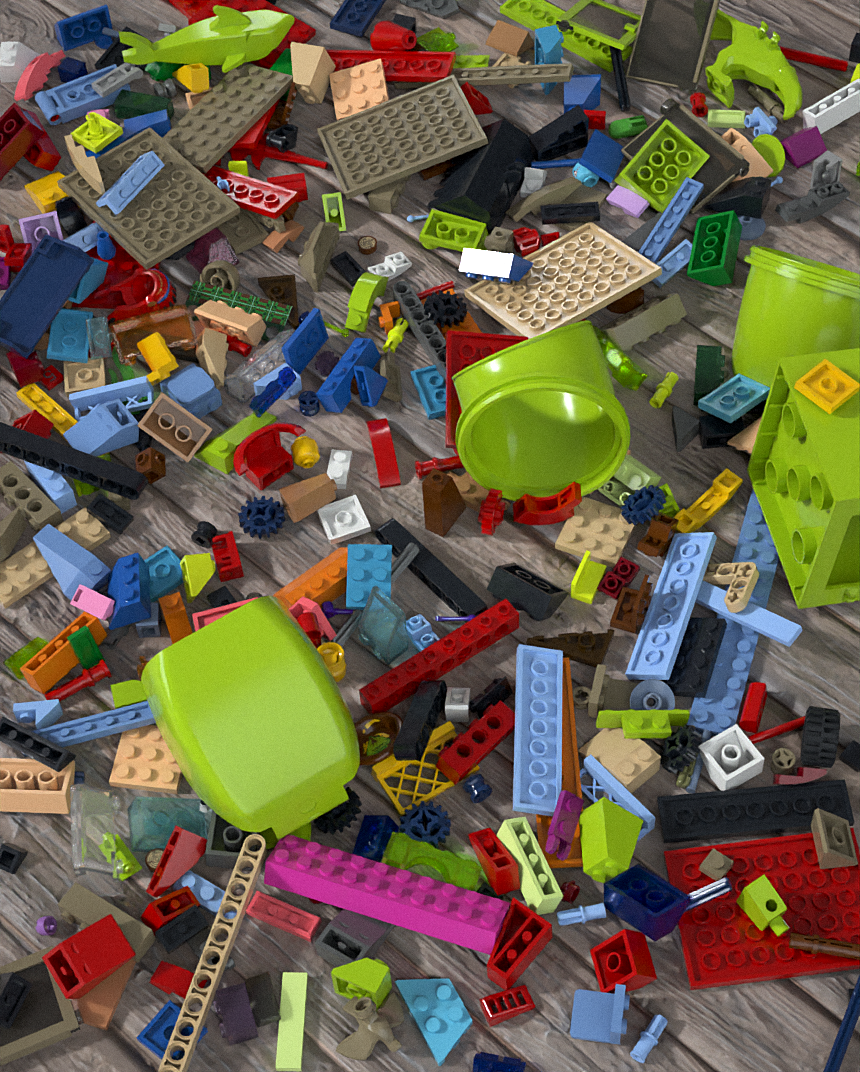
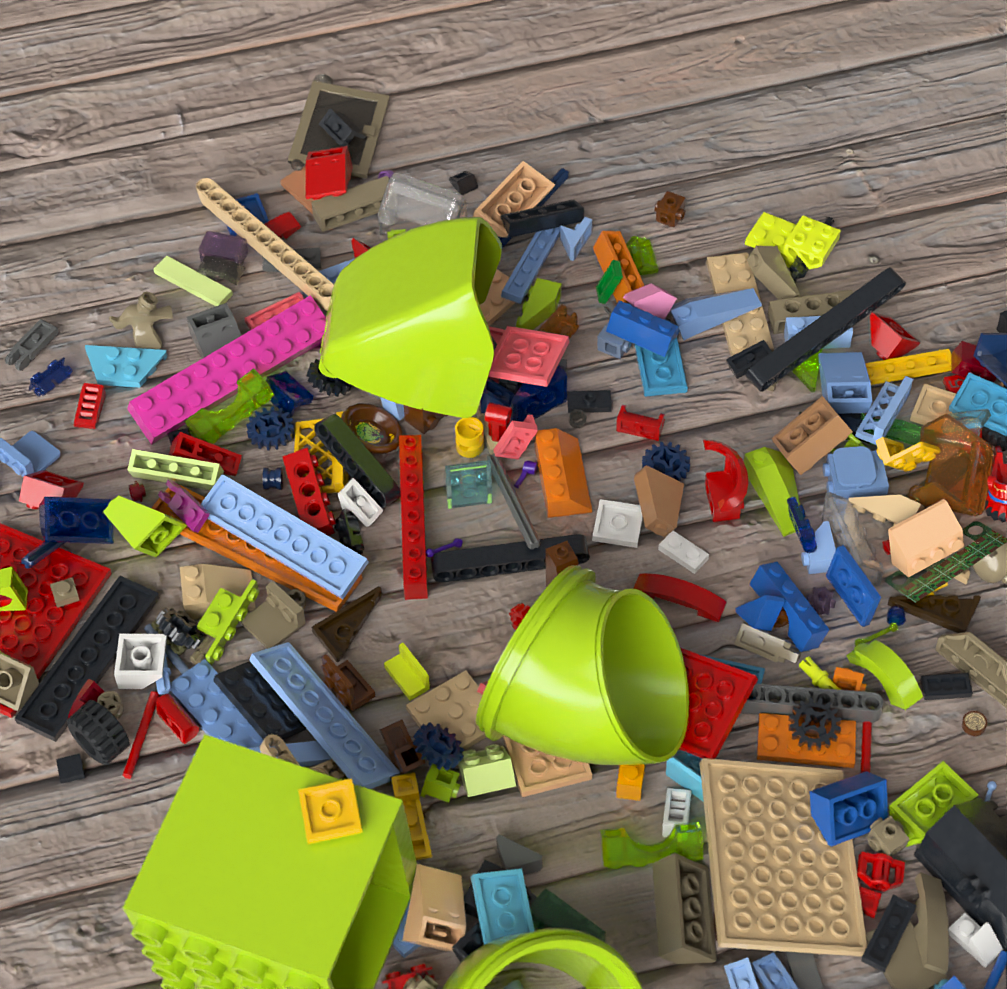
camera: 120 degrees right, 0 degrees up
(87, 678) = (587, 281): red pin -> none
(151, 464) = (784, 406): reddish brown brick -> none
(168, 908) = (333, 242): red slope -> none
(175, 617) = (600, 358): orange slope -> none
(181, 929) = (313, 243): black panel -> none
(196, 572) = (635, 387): neon yellow slope -> none
(204, 534) = (678, 415): black wheel -> none
(305, 452) = (717, 528): yellow head -> none
(307, 398) = (783, 557): dark blue wheel -> none
(363, 979) = (171, 321): lime slope -> none
(367, 567) = (526, 492): dark azure plate -> none
(392, 266) = (925, 725): white slope -> none
(420, 632) = (453, 522): light blue slope -> none
(518, 944) = (123, 428): red wedge -> none
(526, 591) = (432, 618): black slope -> none
(581, 914) = (113, 489): light blue axle -> none
(616, 791) = (168, 568): light blue fence -> none
(619, 577) = (390, 699): dark red slope -> none
(655, 689) = (244, 643): sand blue dish -> none
(663, 390) = (578, 875): neon yellow pin -> none

